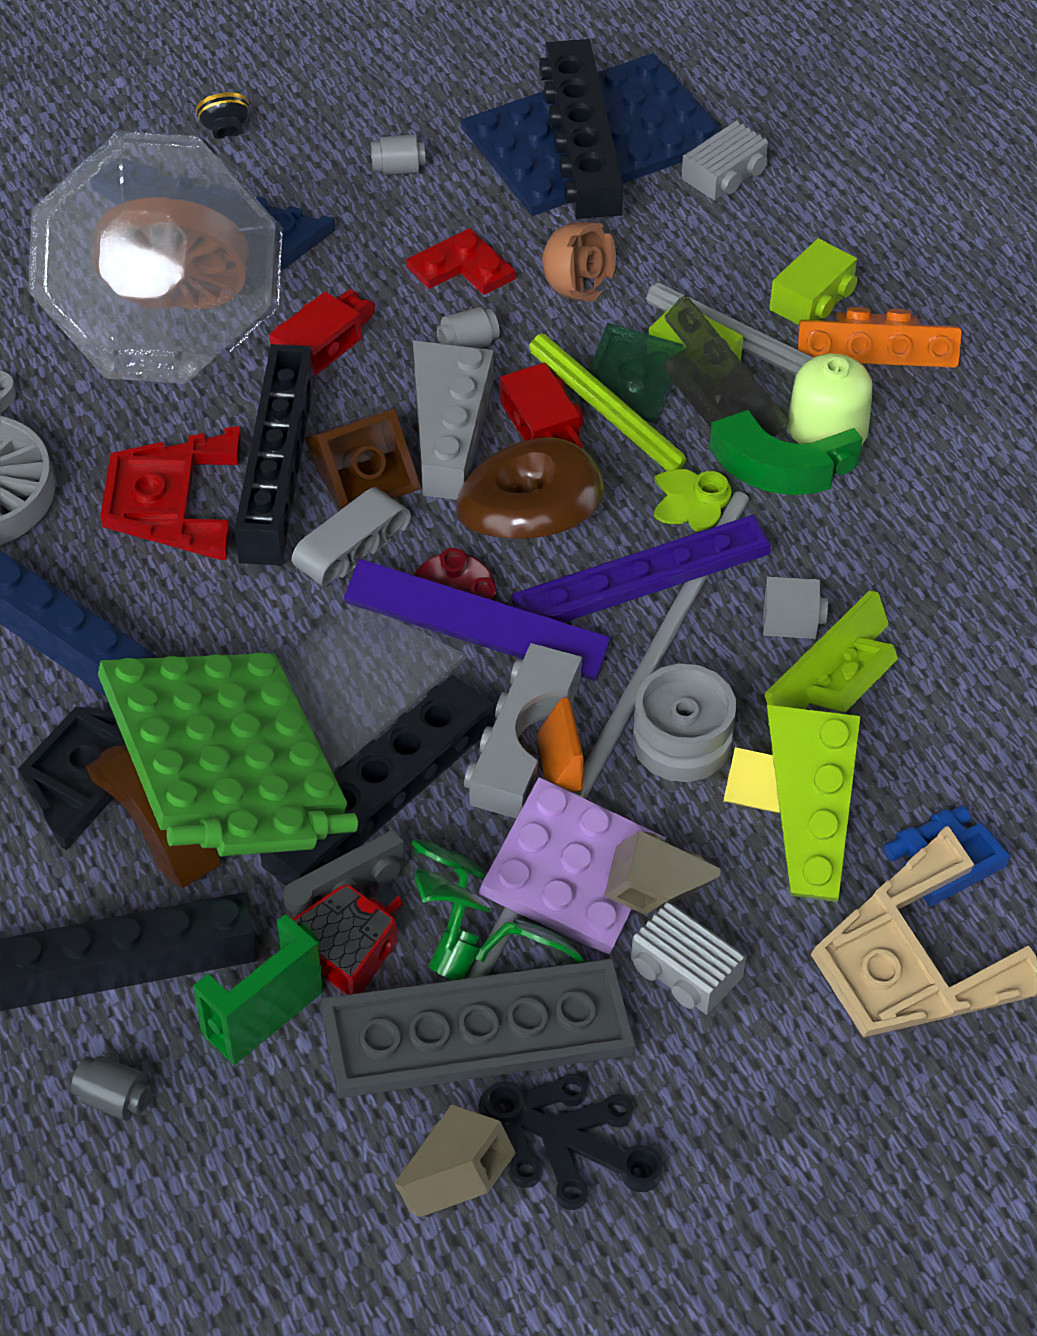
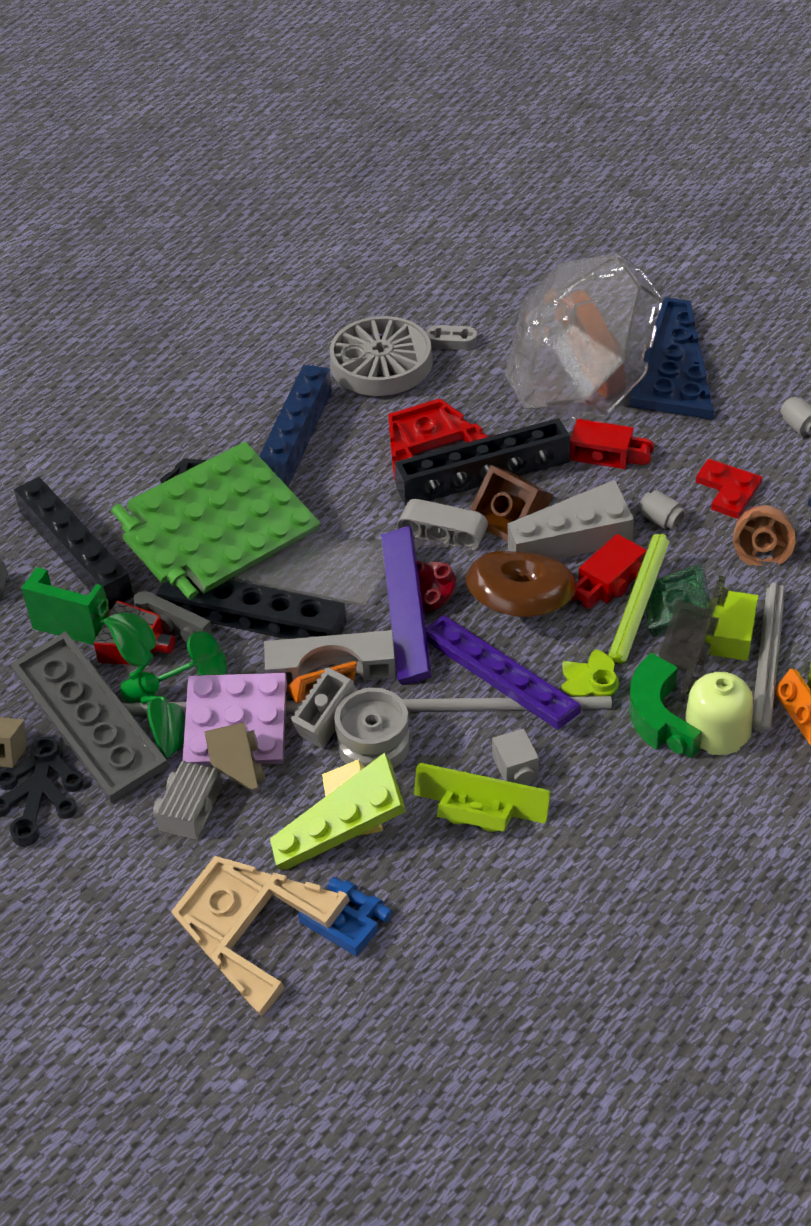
camera: 70 degrees right, 5 degrees down
(223, 112) = (769, 328): black piece -> none
(627, 754) = (316, 716): none -> light grey brick

